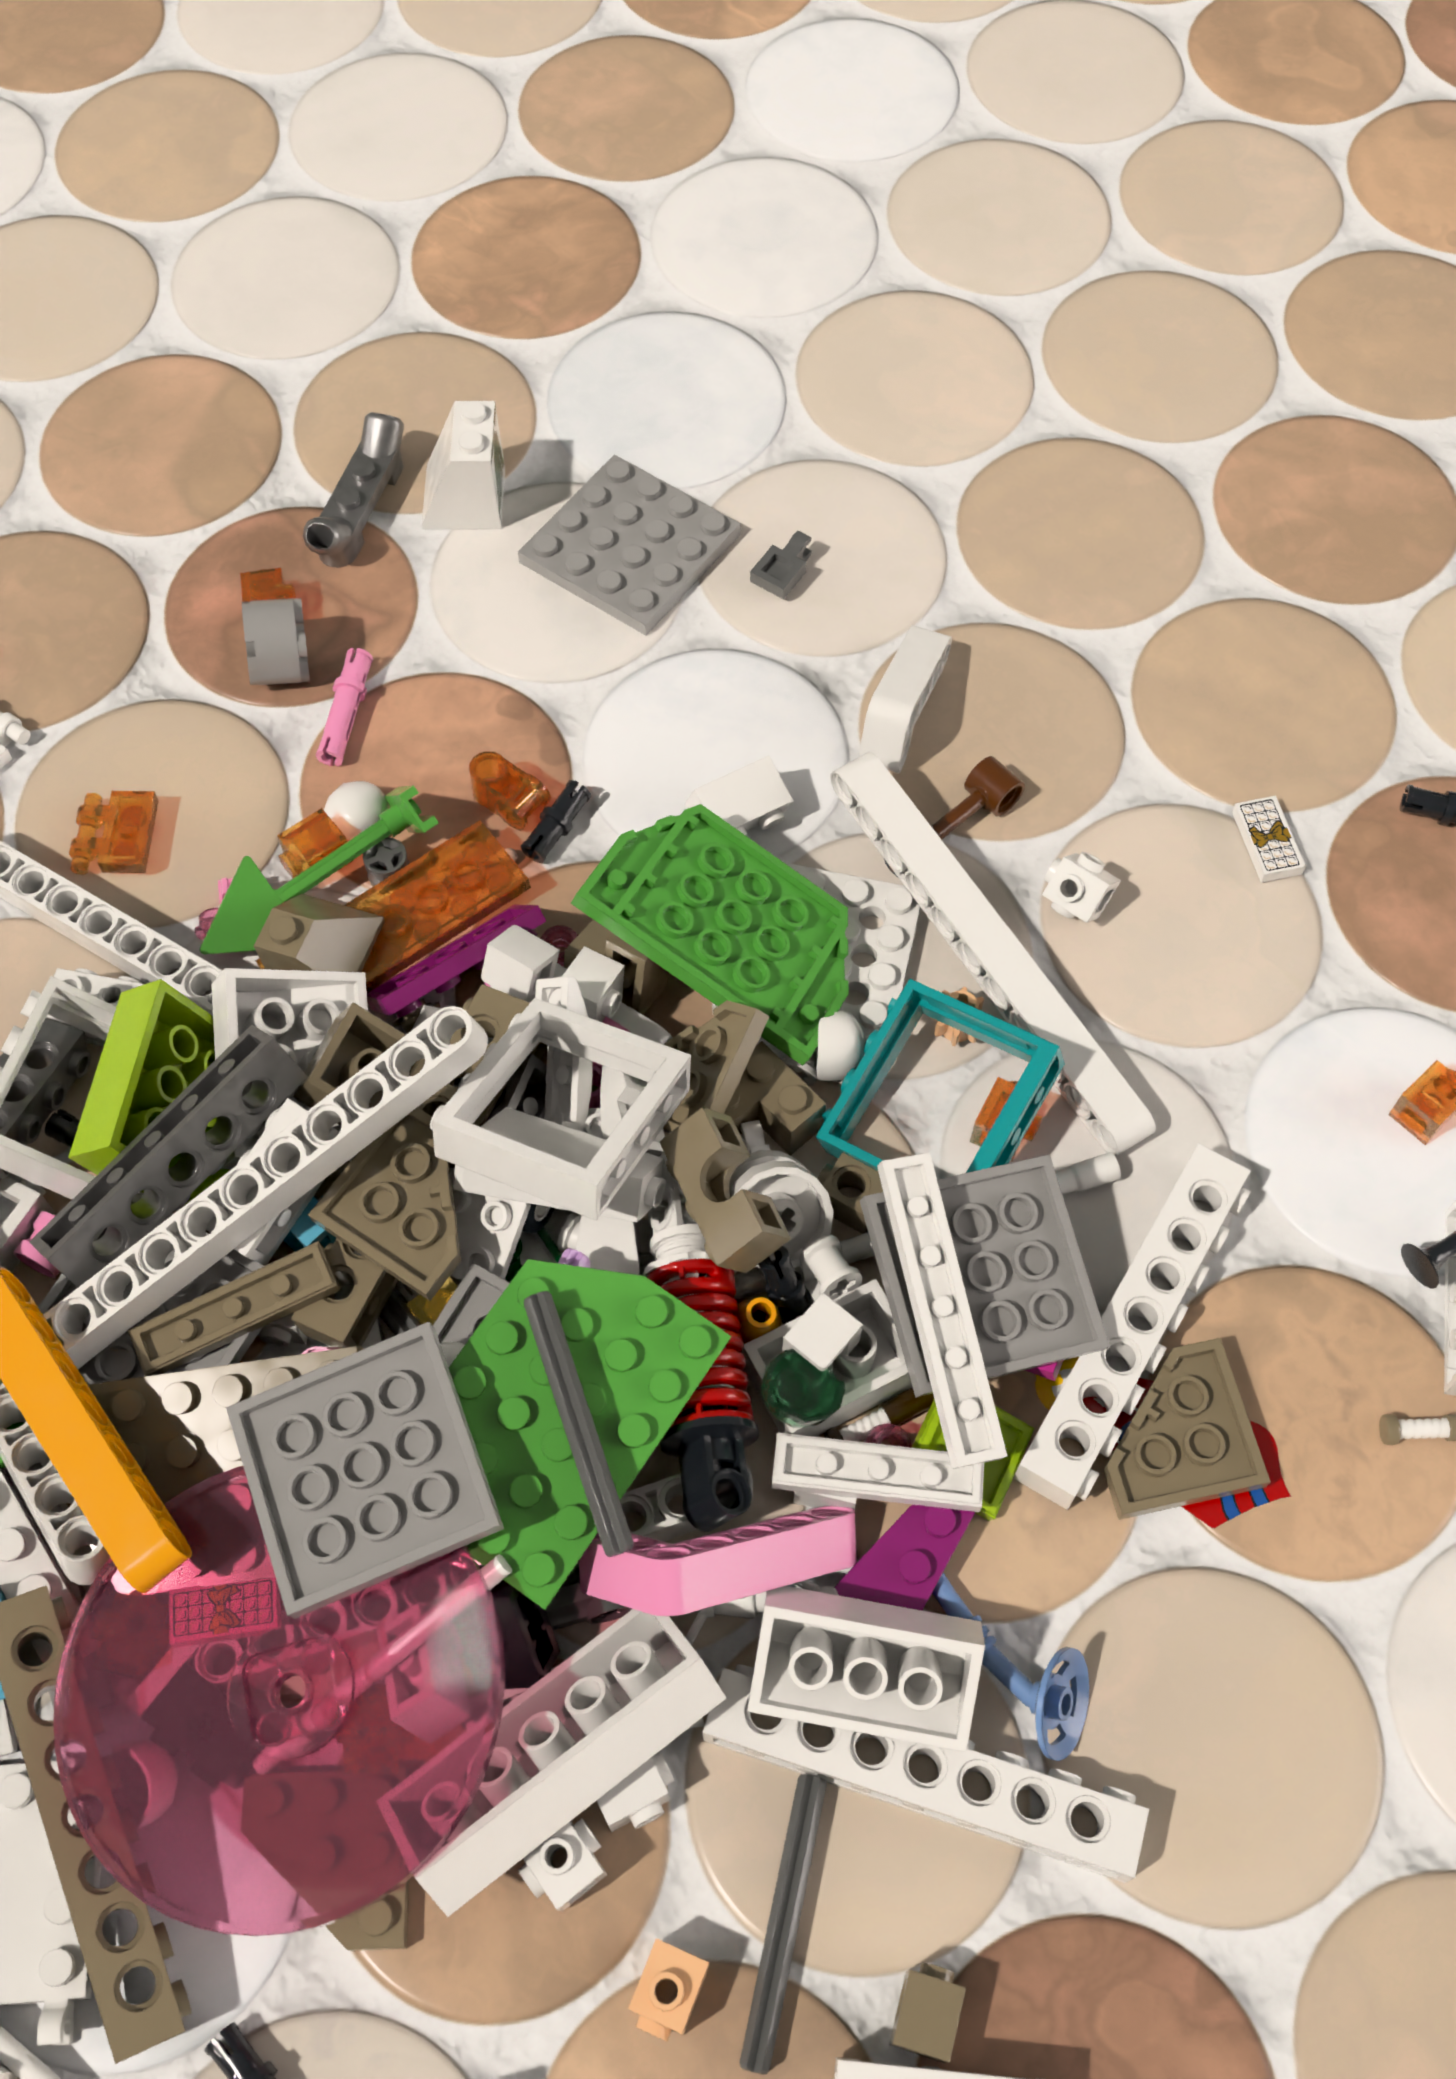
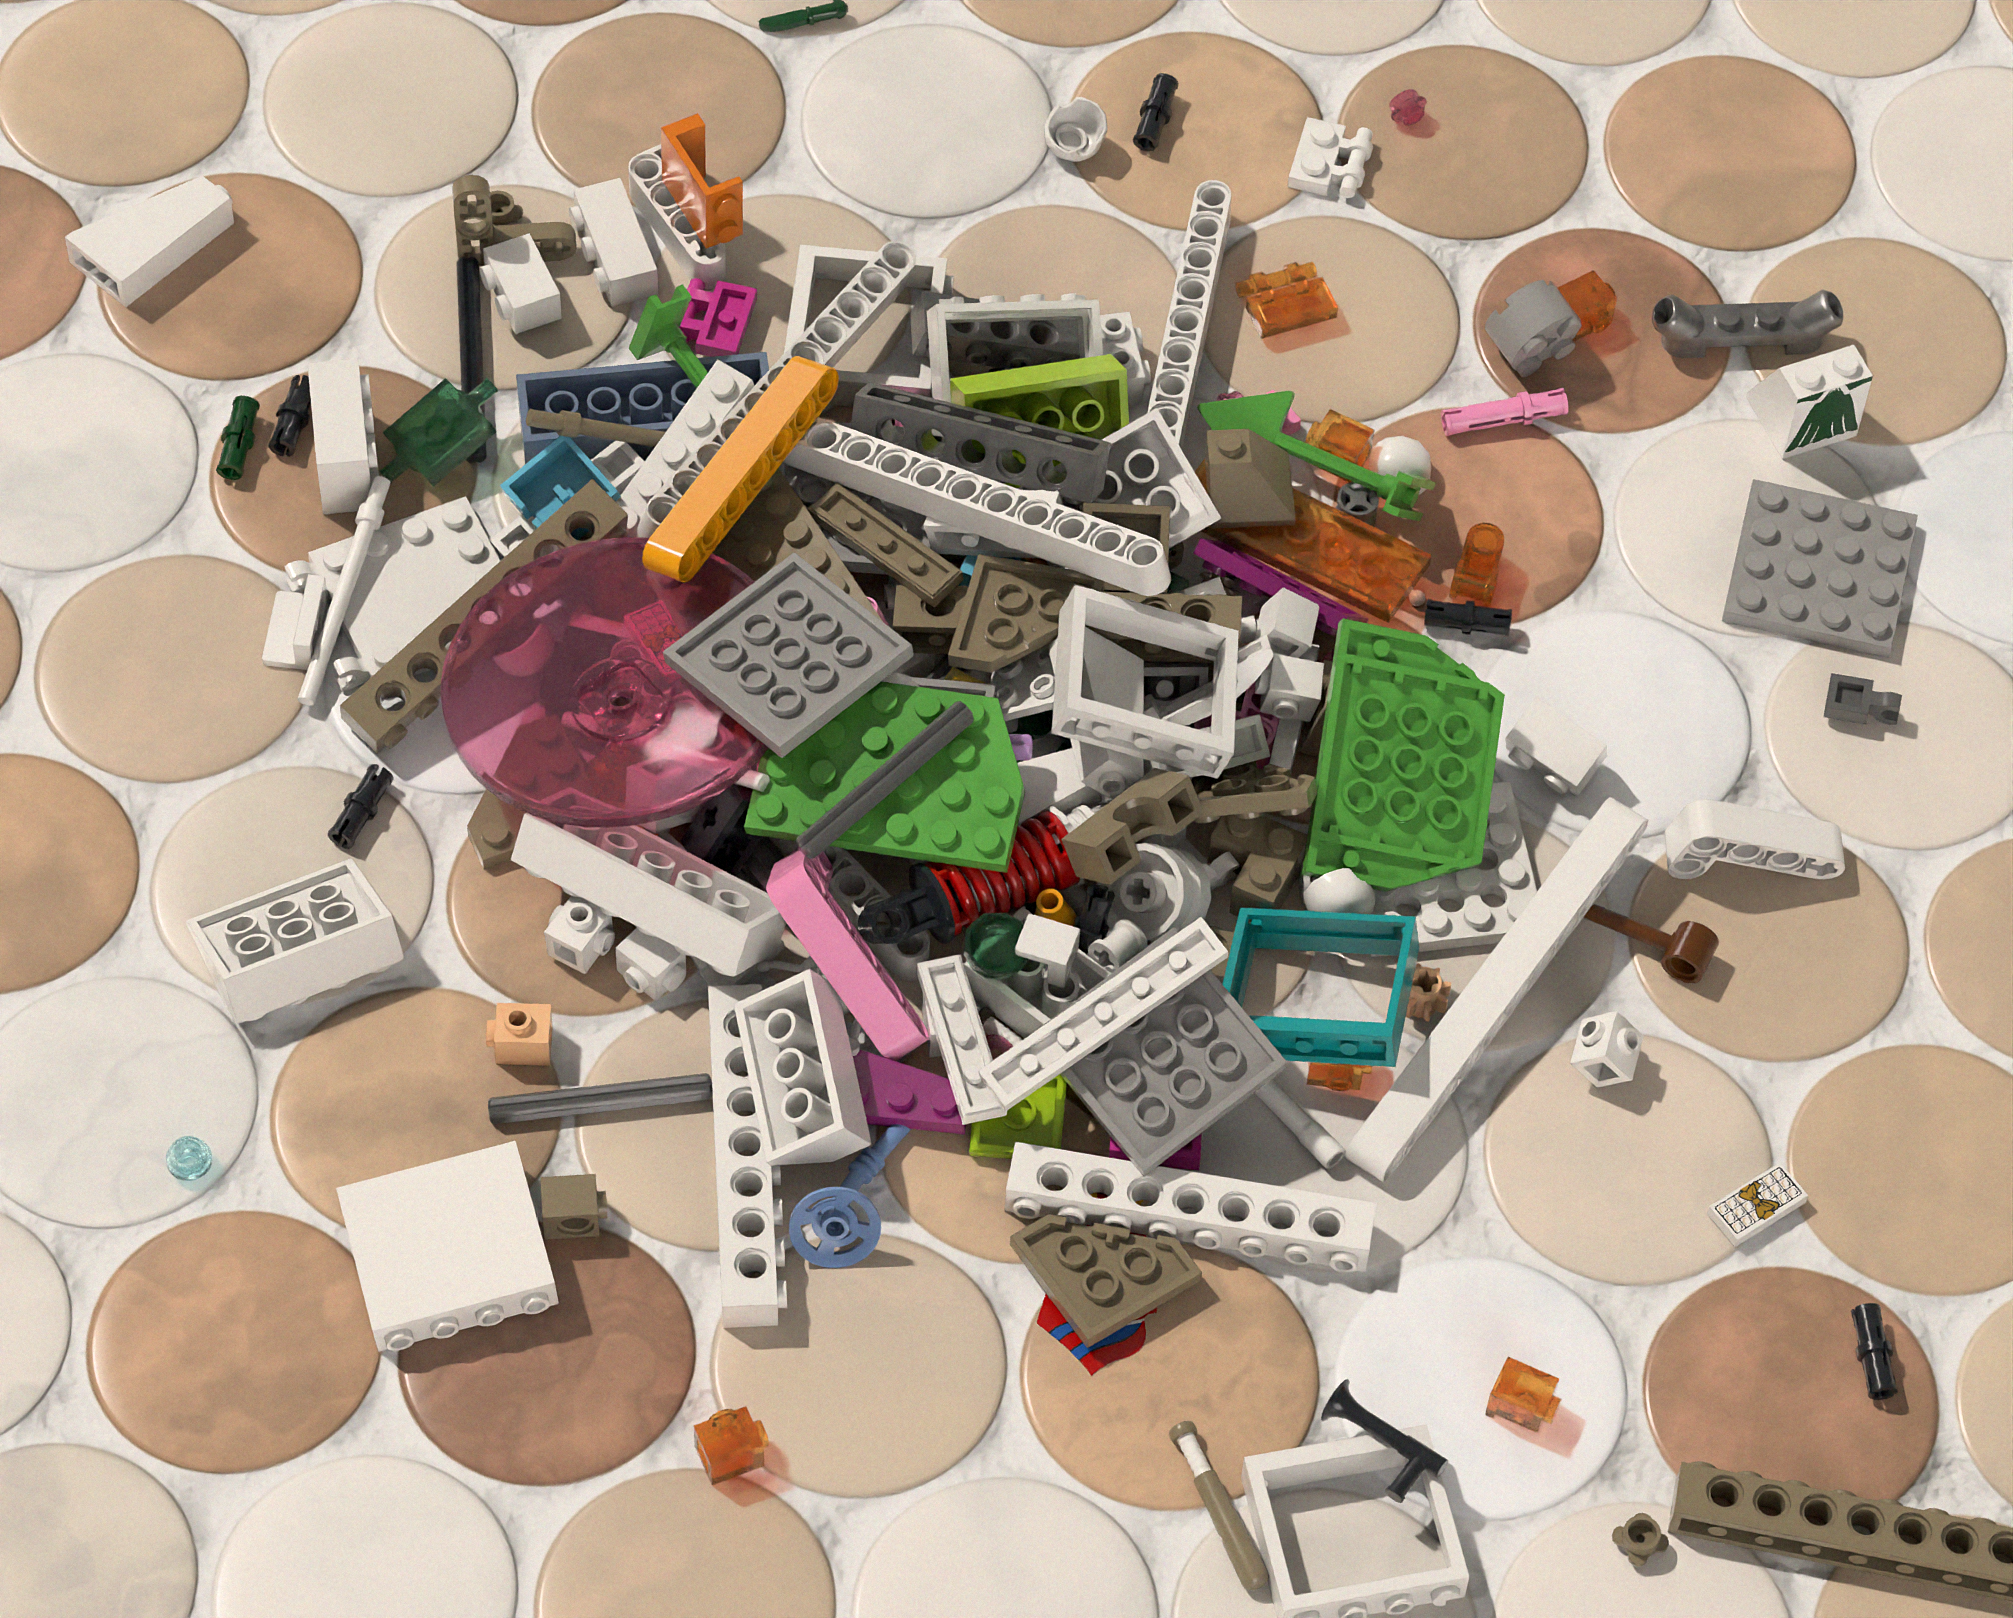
camera: 65 degrees right, 5 degrees down
(1298, 1933) = (730, 1444): none -> clear orange brick

